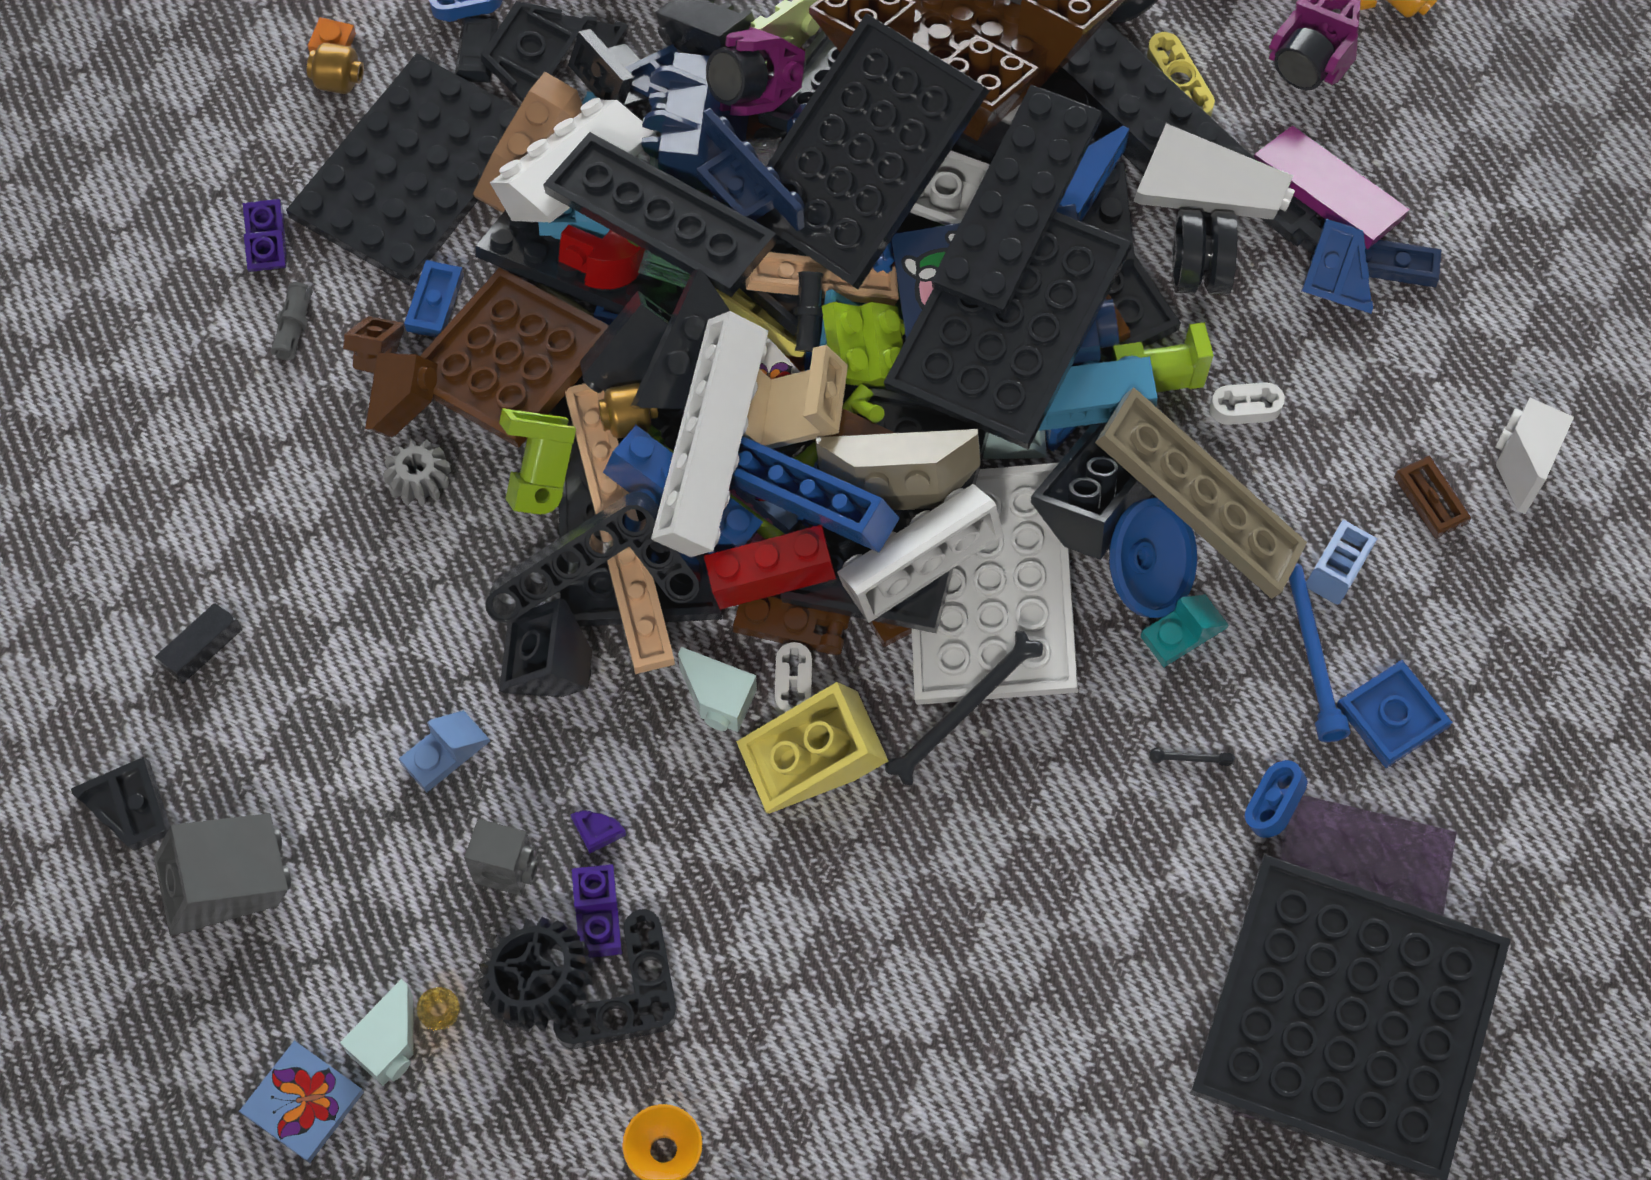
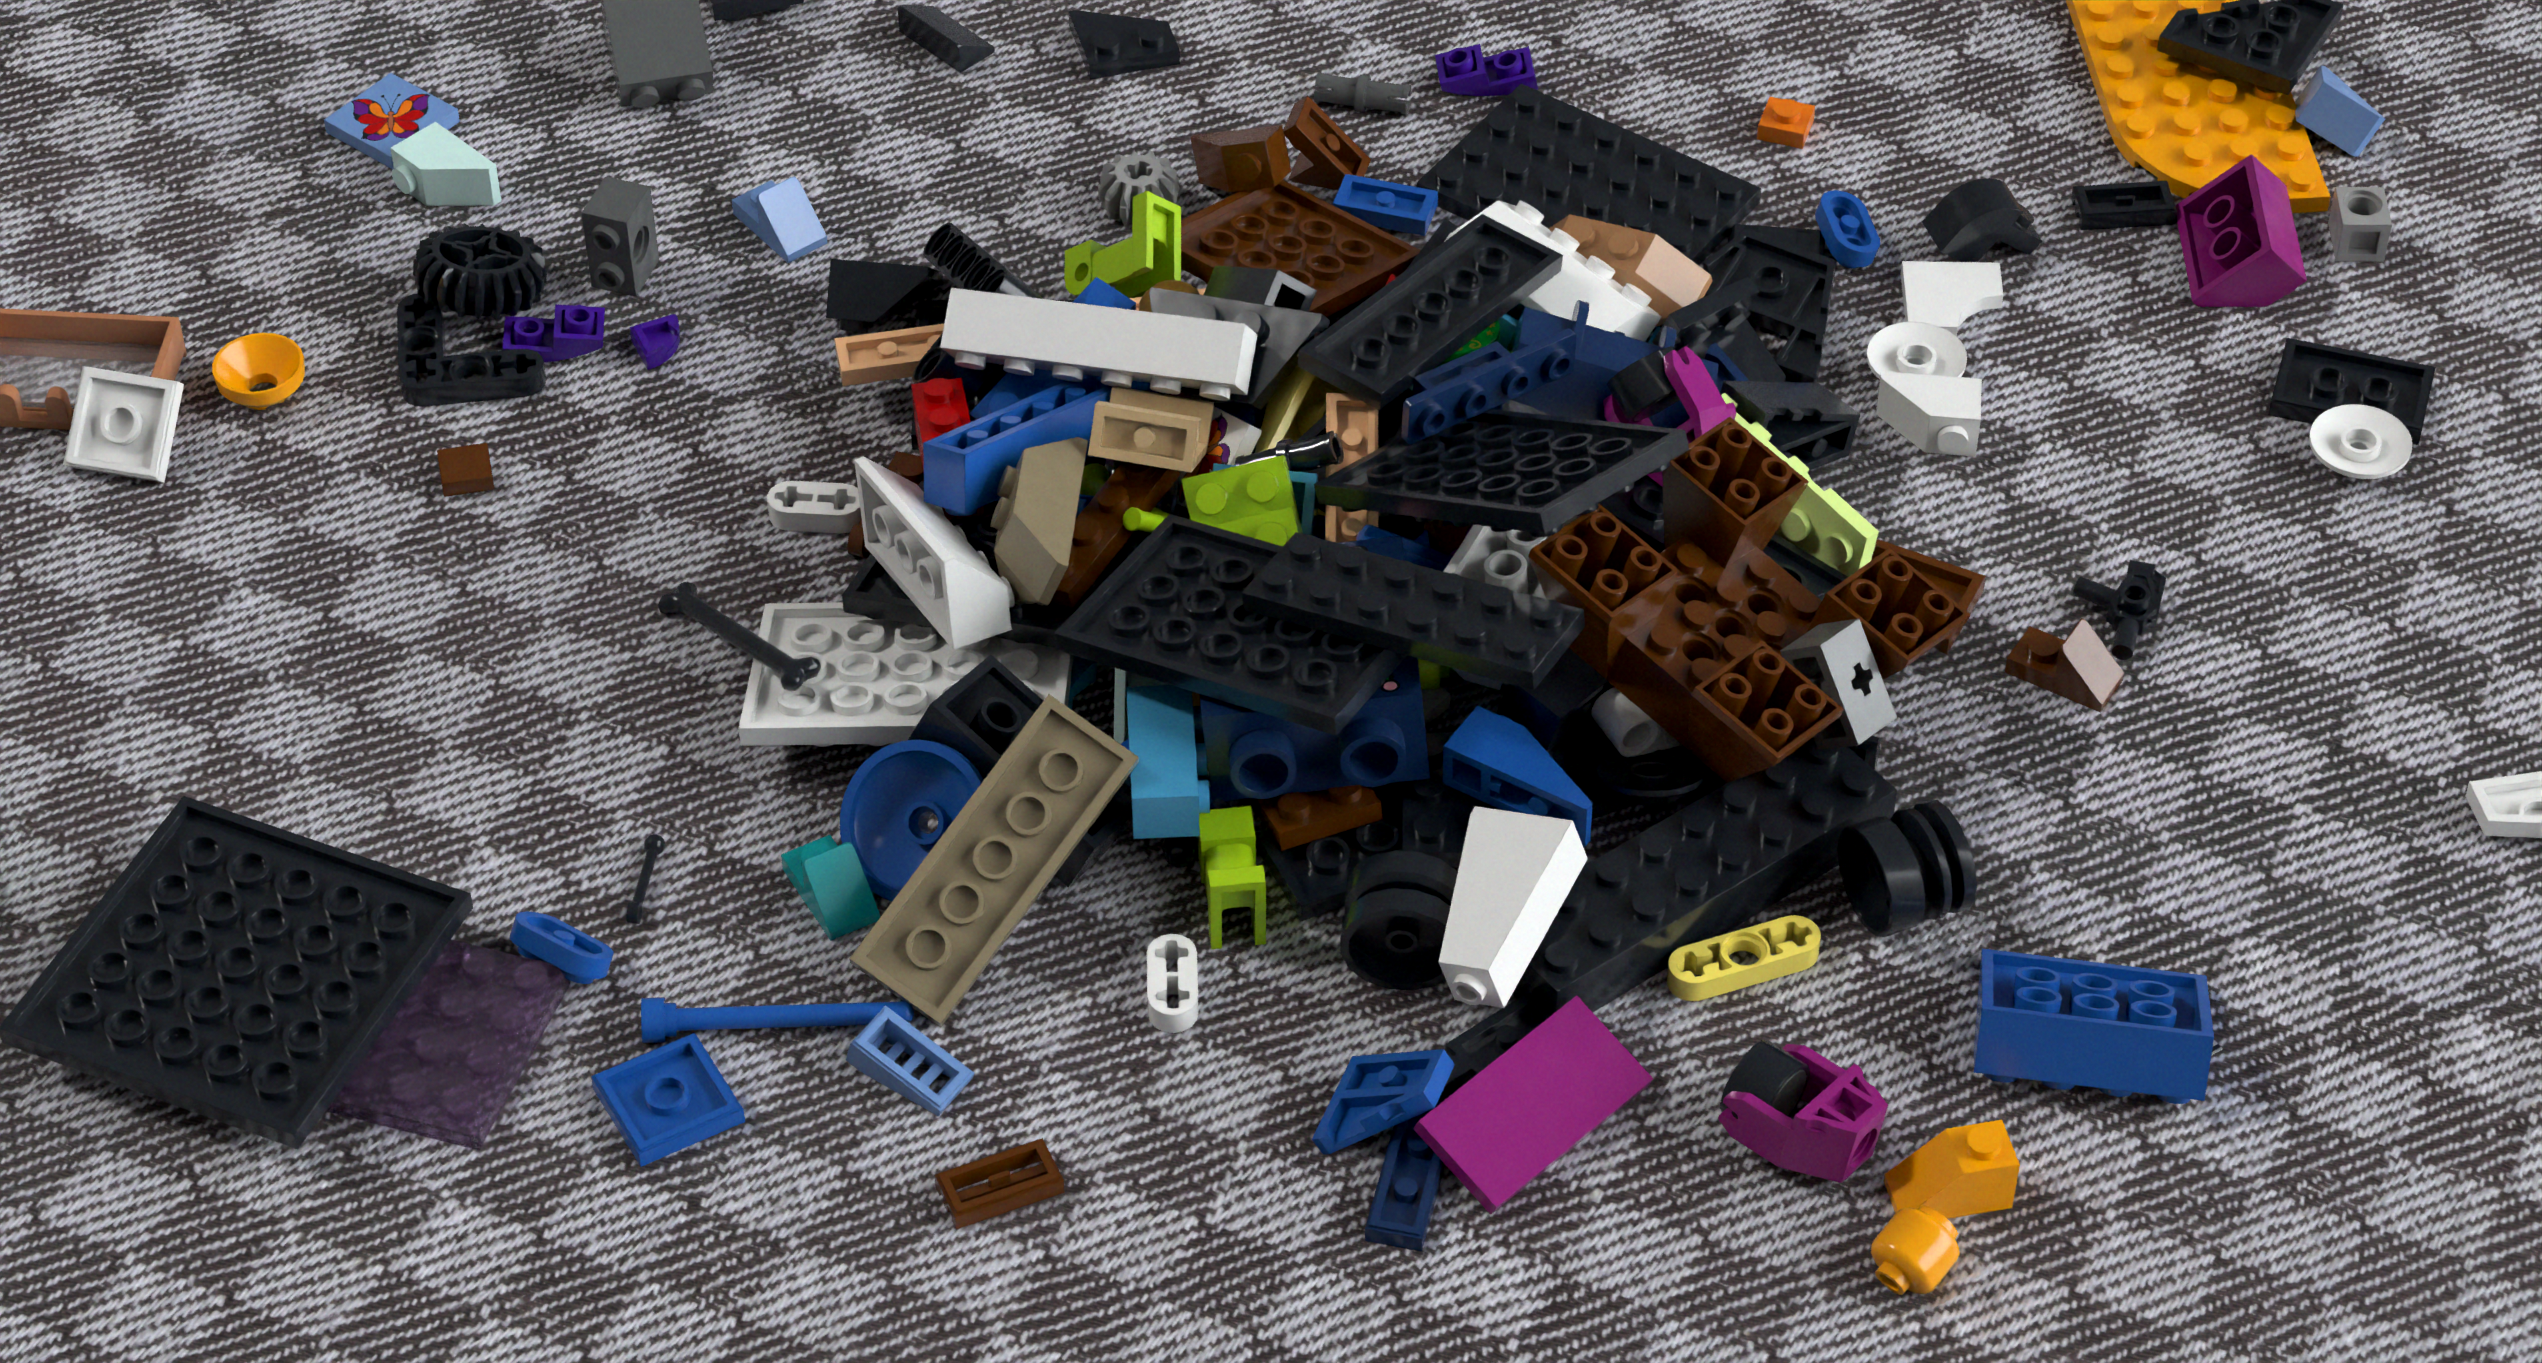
camera: 95 degrees right, 20 degrees down
(213, 505) = (1122, 43): none -> black wing
(334, 68) = (1731, 112): pearl gold head -> none
(435, 996) = (468, 208): clear yellow plate -> none
(717, 689) = (810, 430): light aqua slope -> none
(762, 958) = (465, 469): none -> reddish brown tile
(812, 748) = (719, 517): light yellow slope -> none
(1530, 449) = (1032, 1269): white slope -> none

